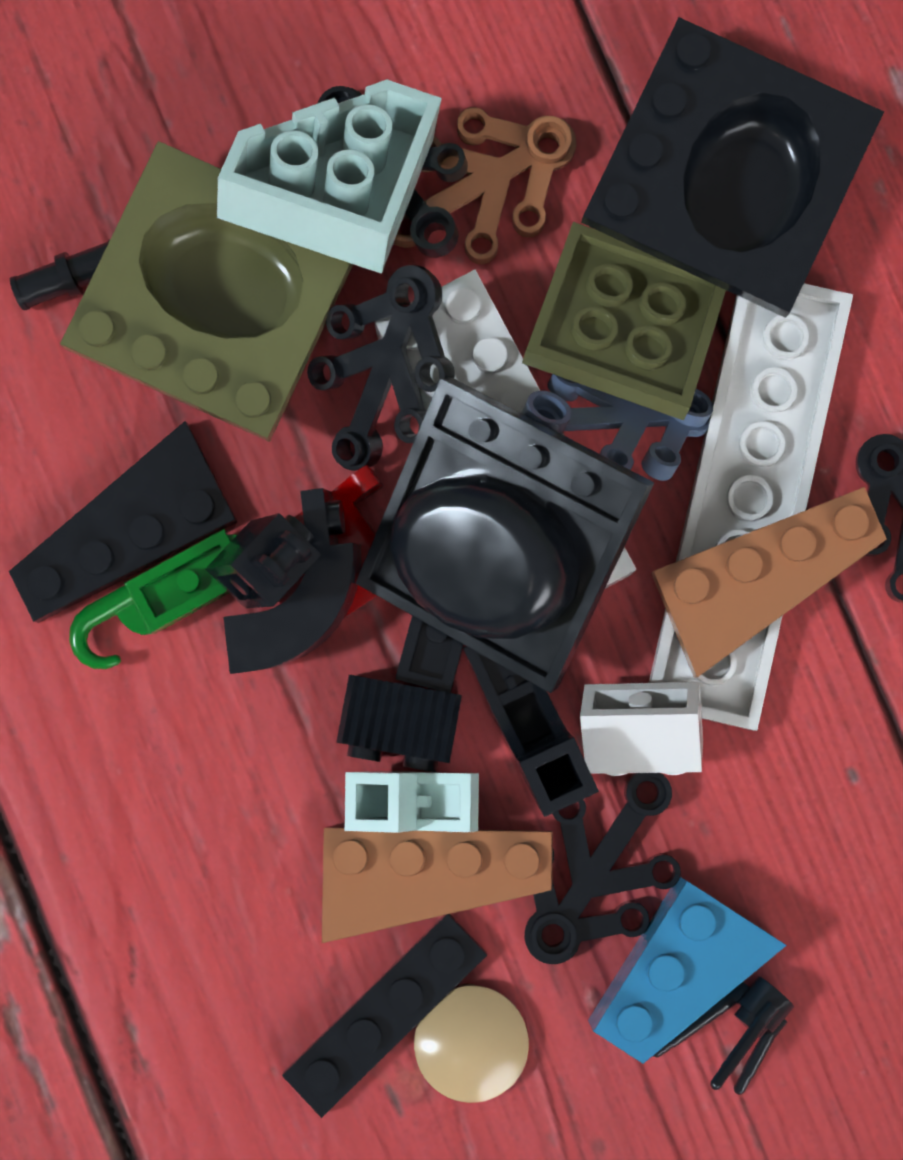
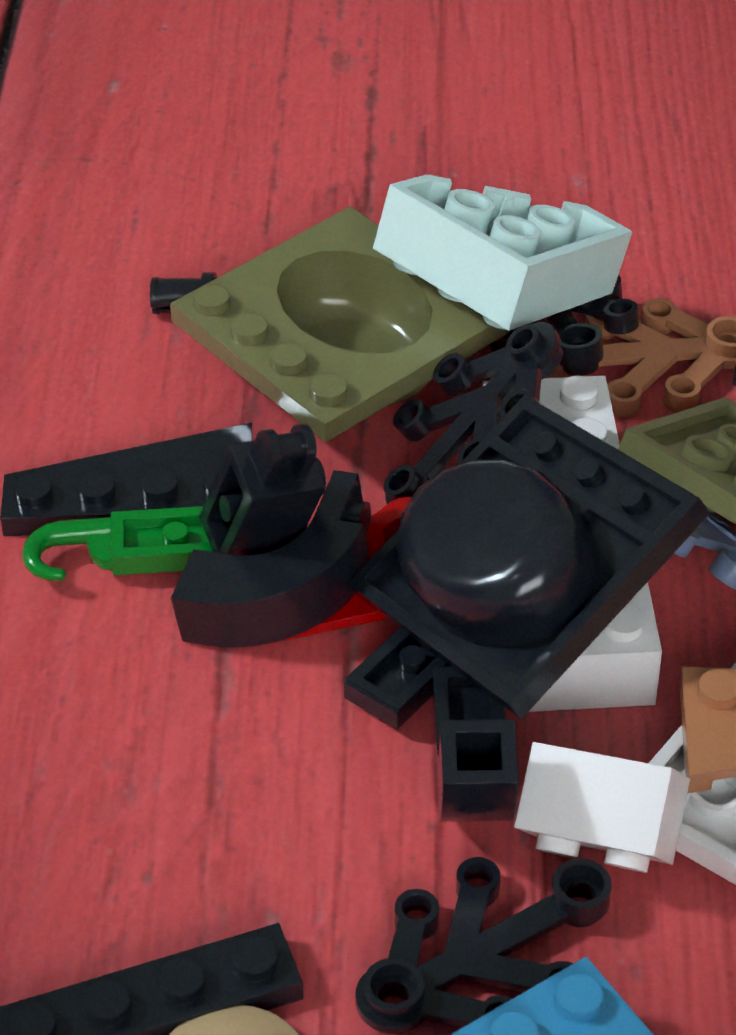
camera: 25 degrees right, 40 degrees down
(398, 721) = (328, 720): black brick -> none
(411, 801) = (285, 787): light aqua brick -> none
(418, 875) = (268, 869): nougat wing -> none

